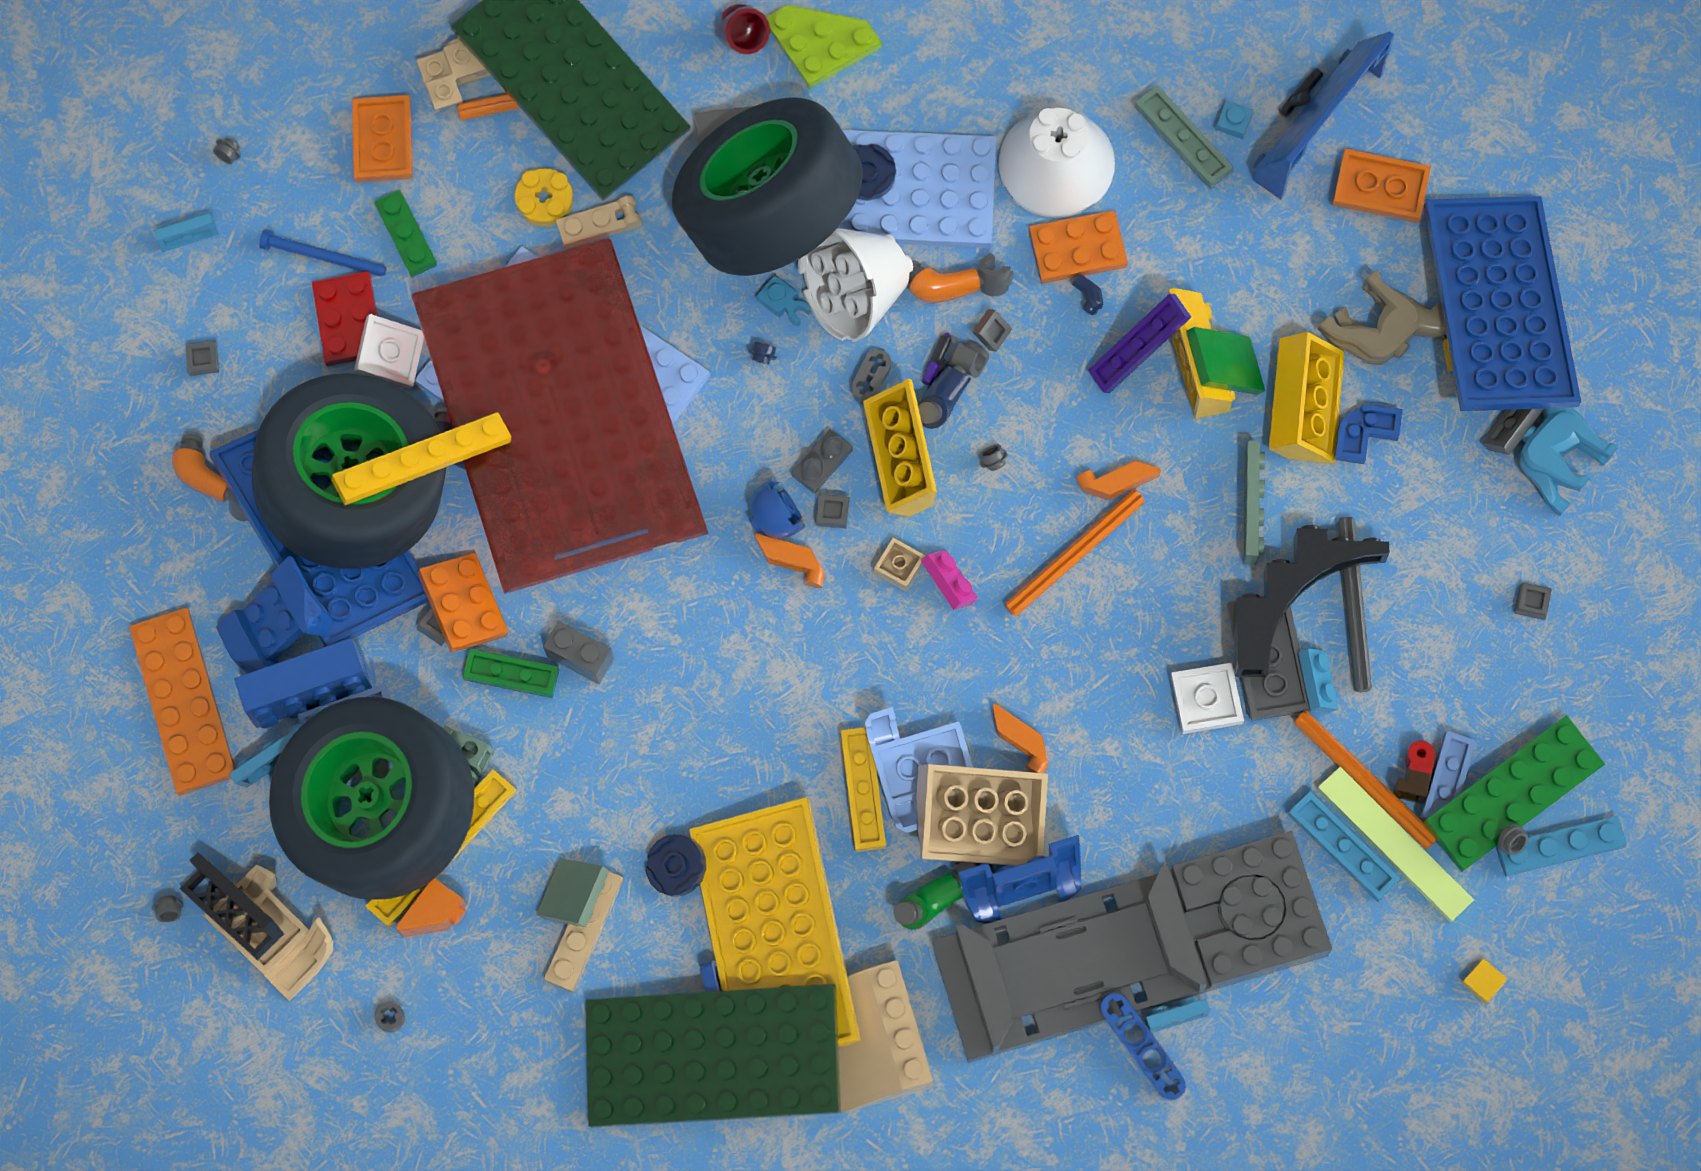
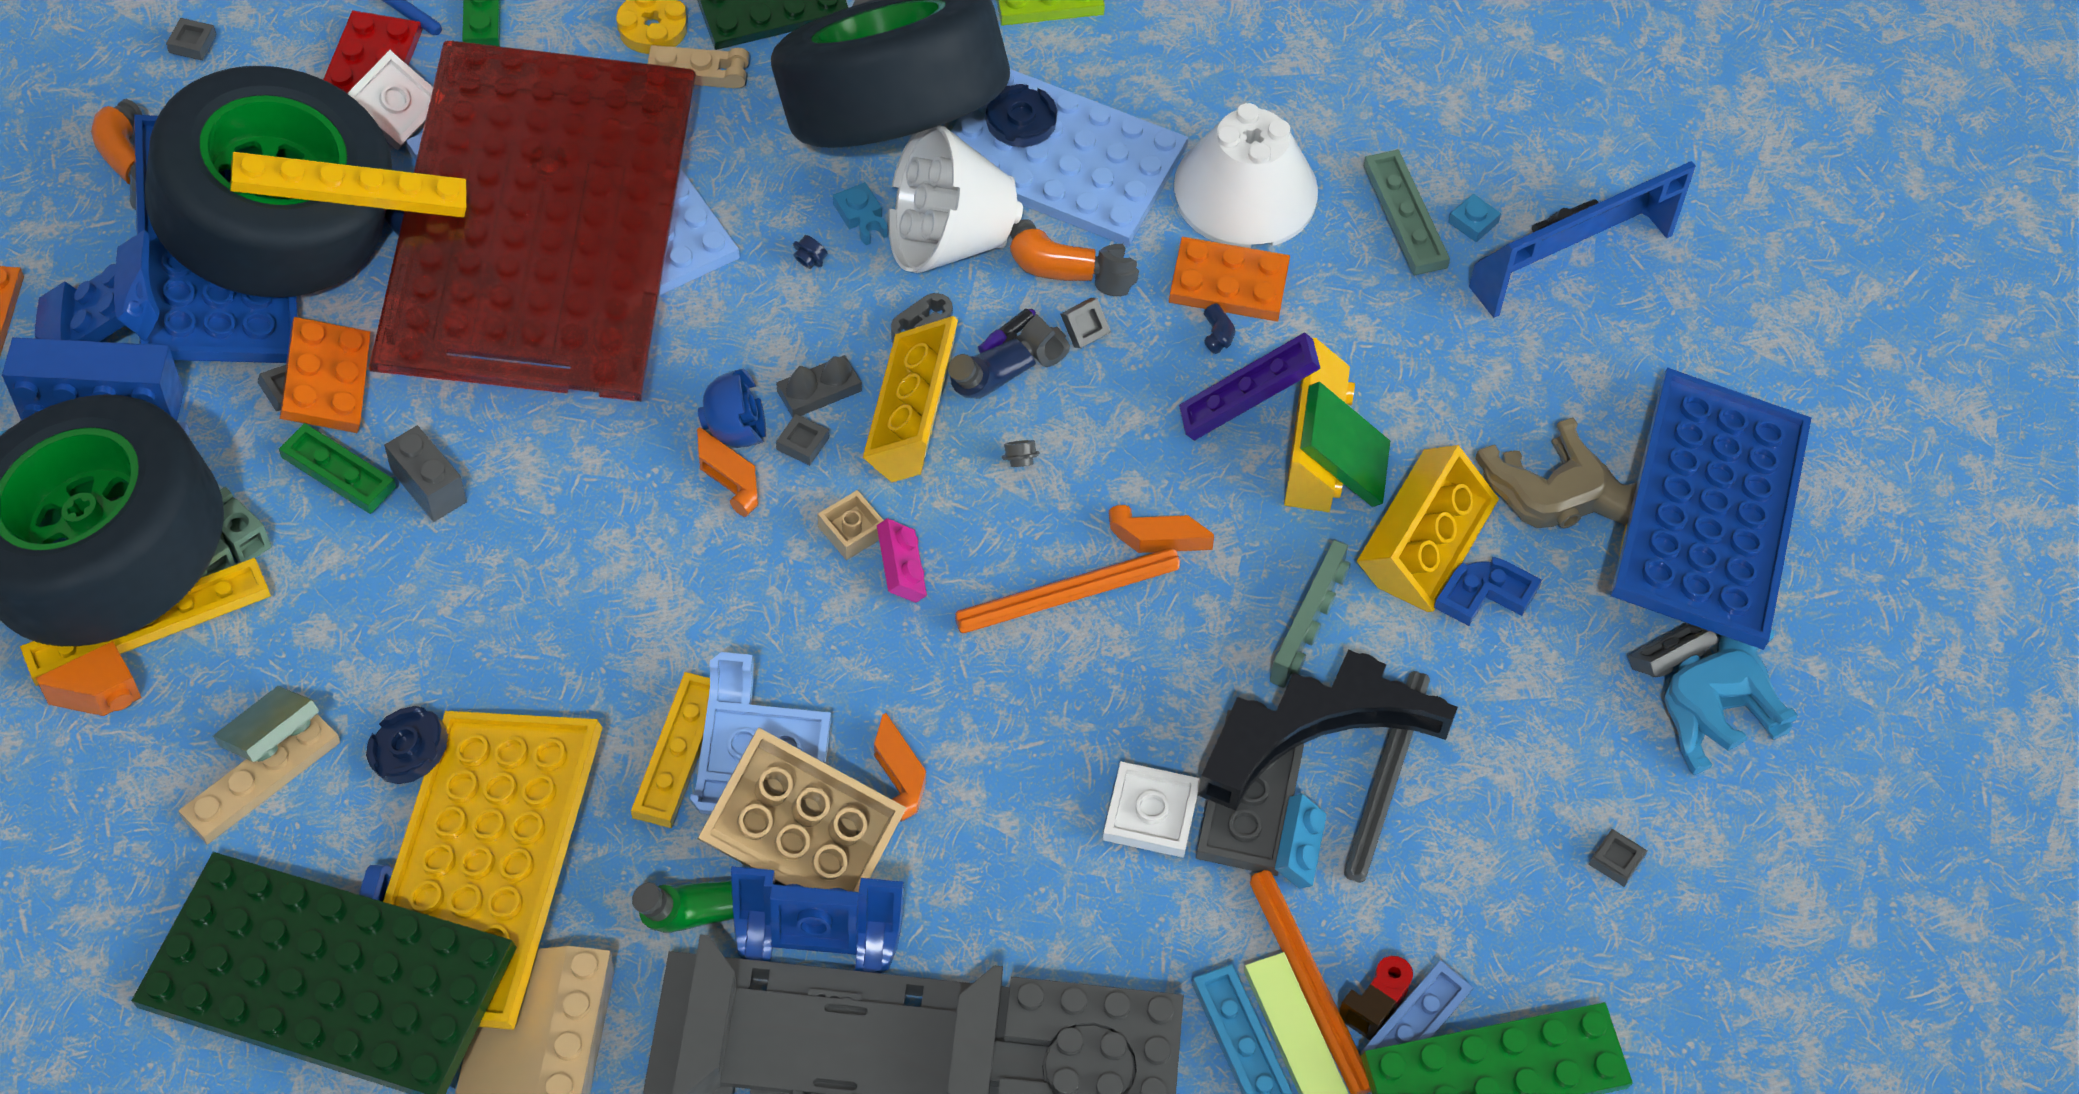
camera: 15 degrees right, 15 degrees down
(1381, 185) = (1620, 341): orange plate -> none

